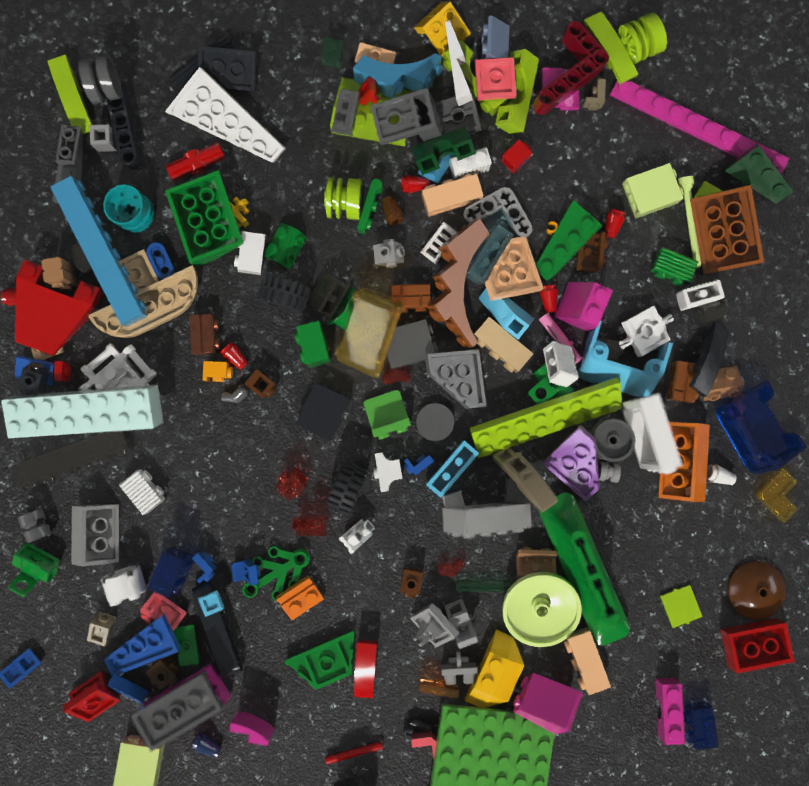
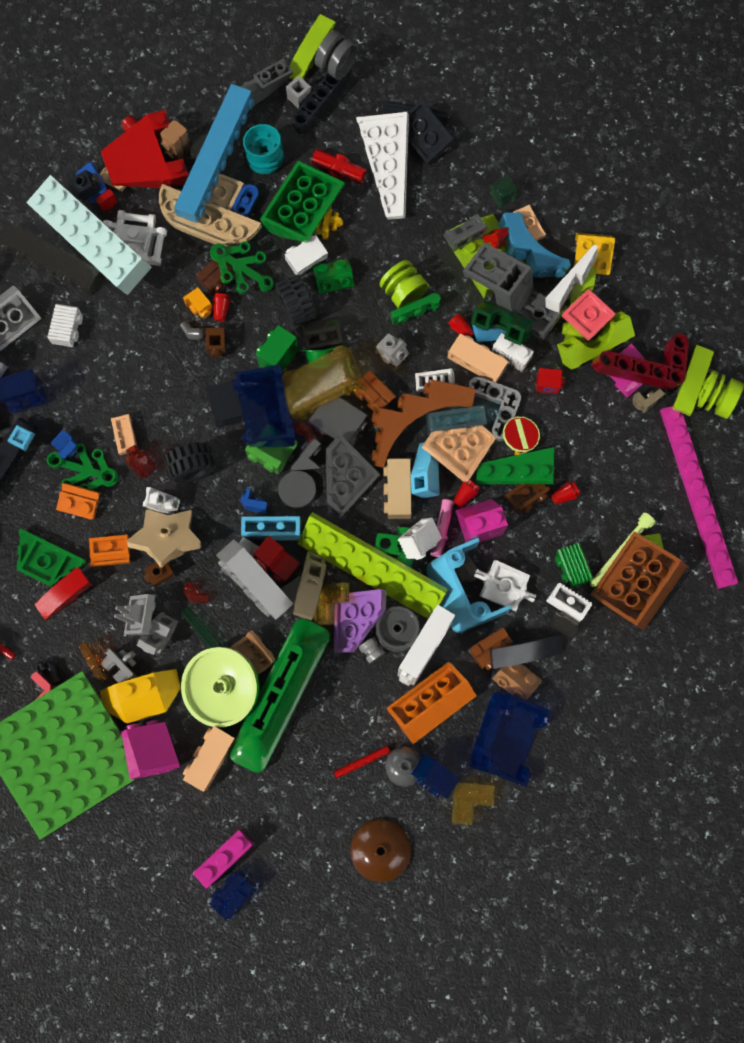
camera: 50 degrees right, 10 degrees down
(205, 562) = (48, 411): blue bracket -> none
(215, 313) = (239, 266): none -> green plant
(275, 517) = (123, 433): none -> light nougat plate
(291, 483) = (160, 422): clear red brick -> none
(354, 395) = (264, 407): none -> clear blue windscreen
(361, 605) = (109, 550): none -> orange plate
(386, 471) = (228, 484): white brick -> none
(386, 567) = (165, 536): none -> tan plate
(392, 212) = (426, 328): reddish brown cone -> none
(418, 397) = (304, 460): none -> dark grey slope
(481, 485) = (273, 557): none -> red brick
(495, 39) = (619, 292): sand blue slope -> none
(540, 215) = (521, 434): none -> red piece
(544, 465) = (330, 595): none -> clear yellow plate
(653, 190) = (617, 501): yellowish green brick -> none
(681, 606) = (316, 800): lime piece -> none
(682, 549) = (361, 762): none -> red bar
(713, 521) = (401, 764): none -> dark grey cylinder
(718, 474) = (445, 740): white cone -> none
(744, 507) = (435, 776): none -> clear blue brick
(757, 169) = (703, 568): dark green wedge -> none
(757, 645) = (334, 883): red brick -> none

